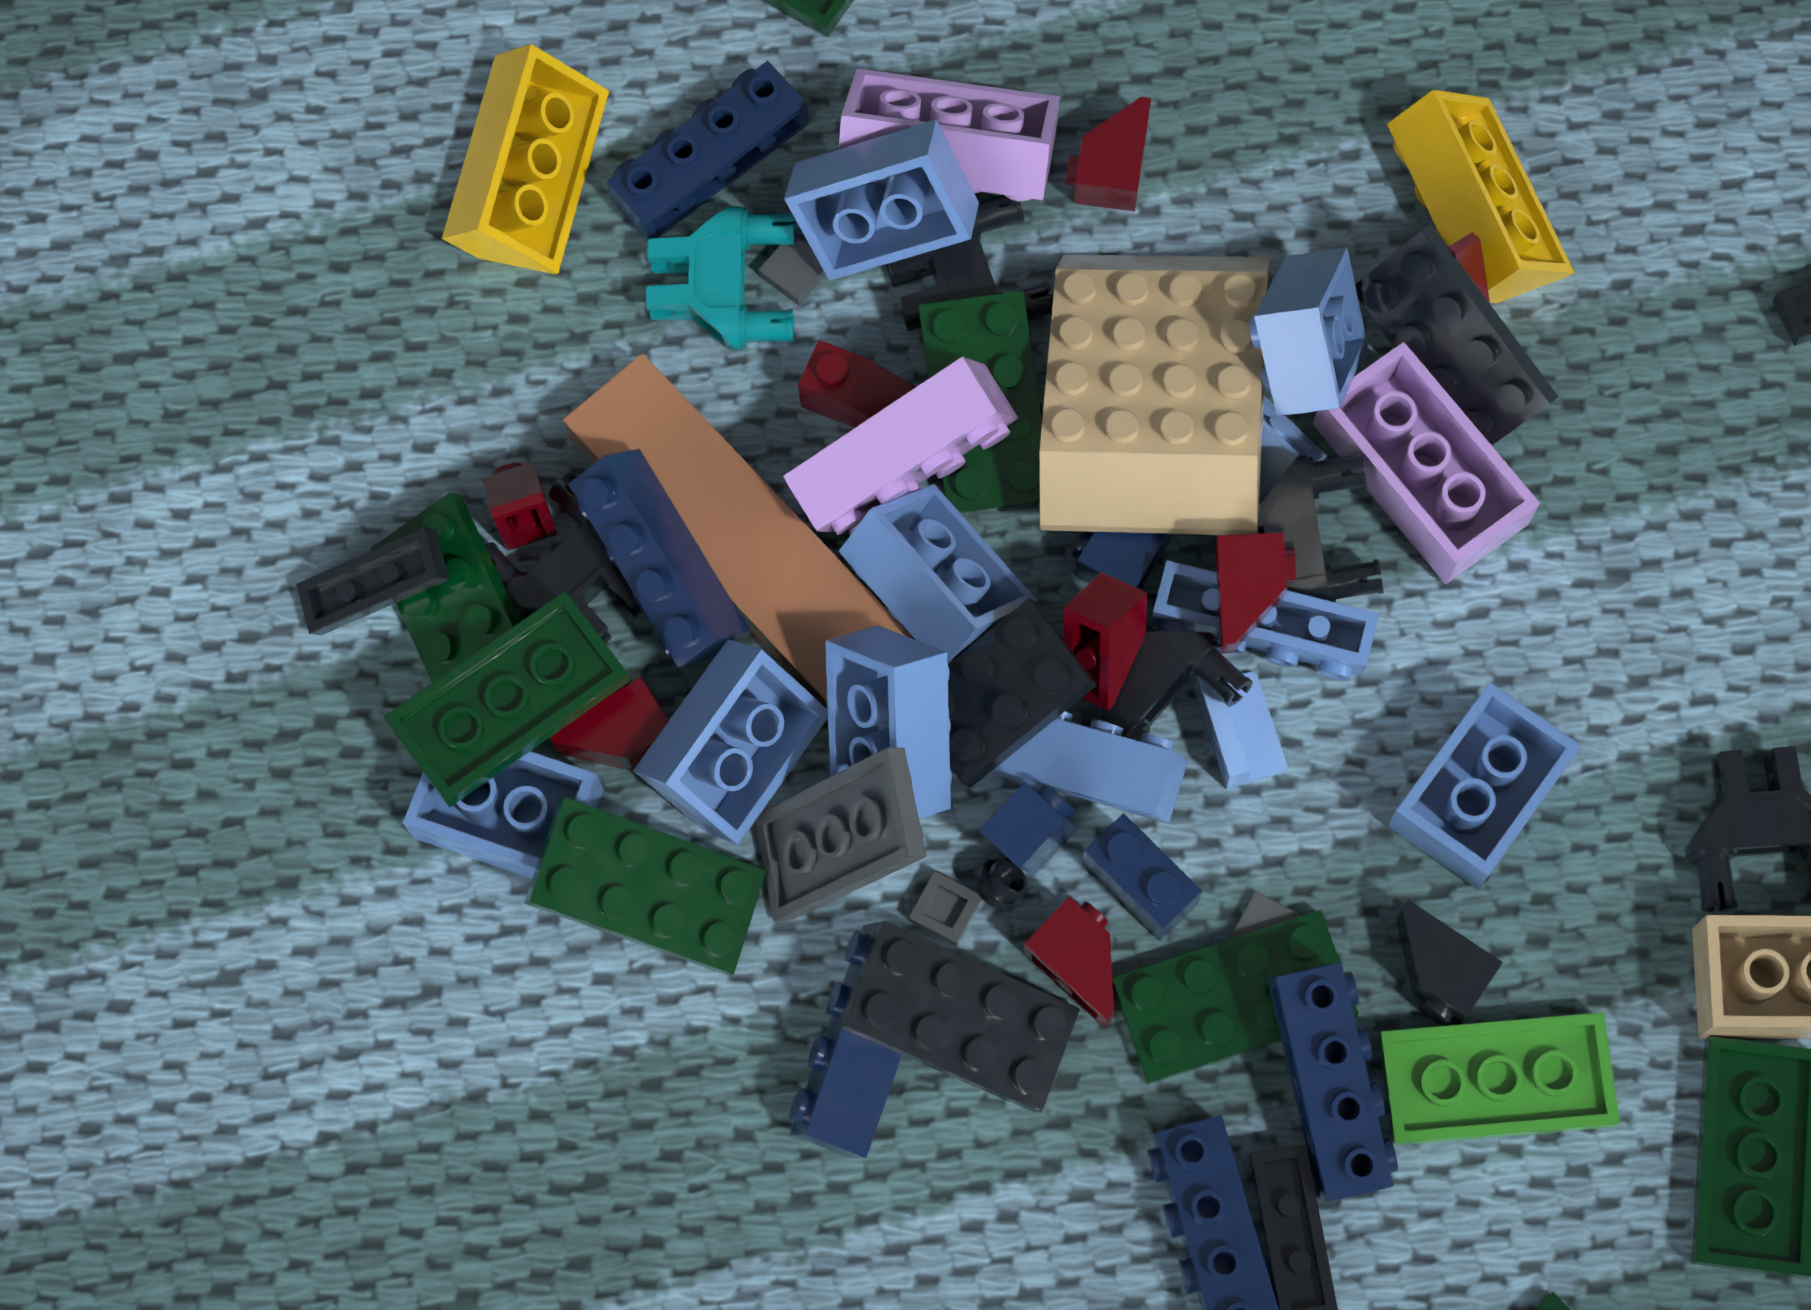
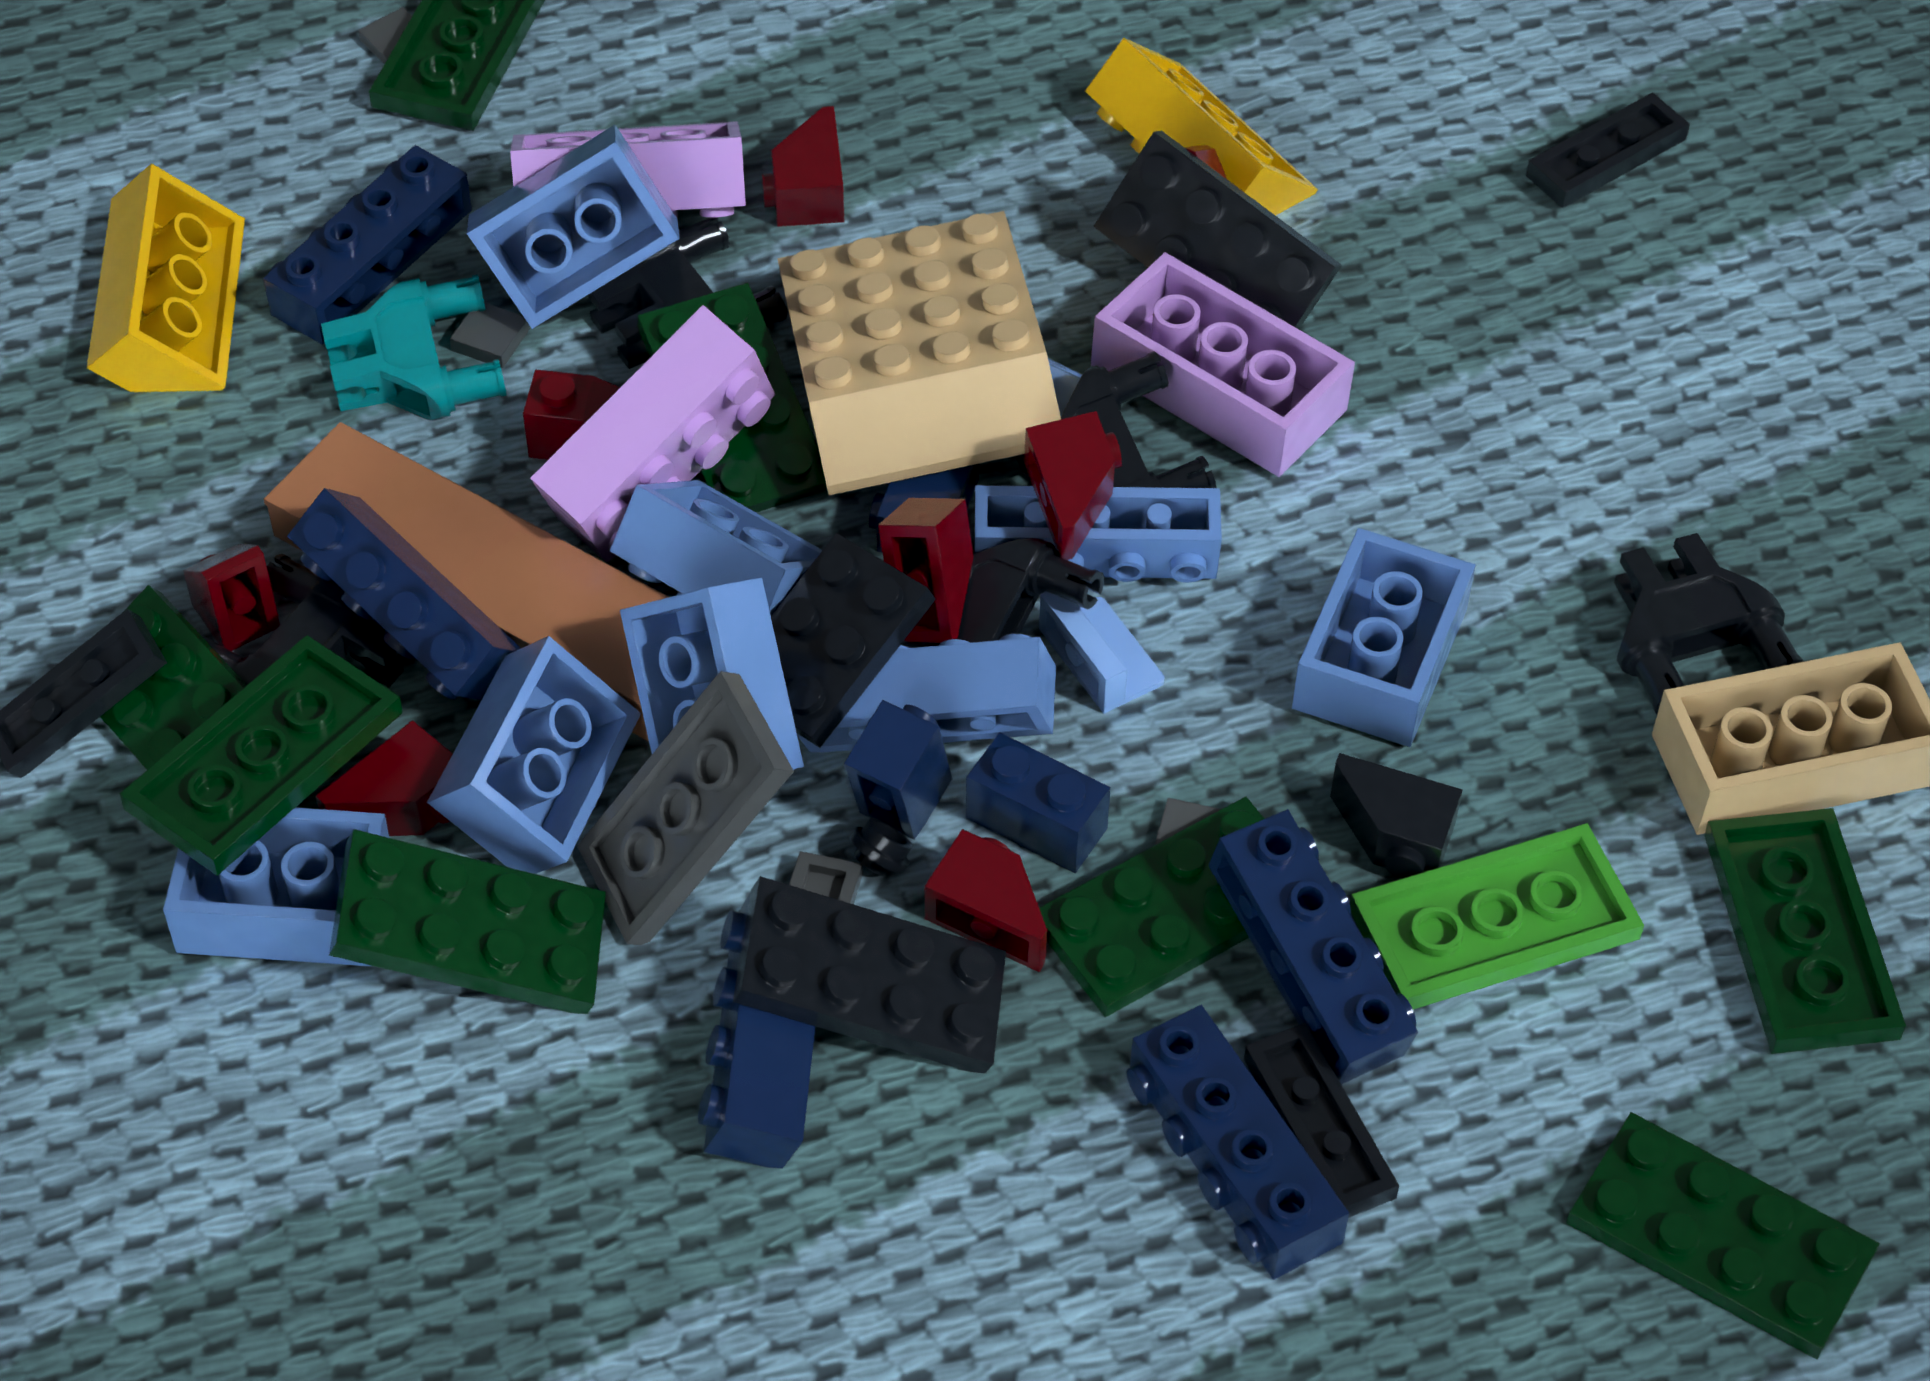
camera: 20 degrees left, 20 degrees down
(1310, 332) = (1064, 252): medium blue brick -> none

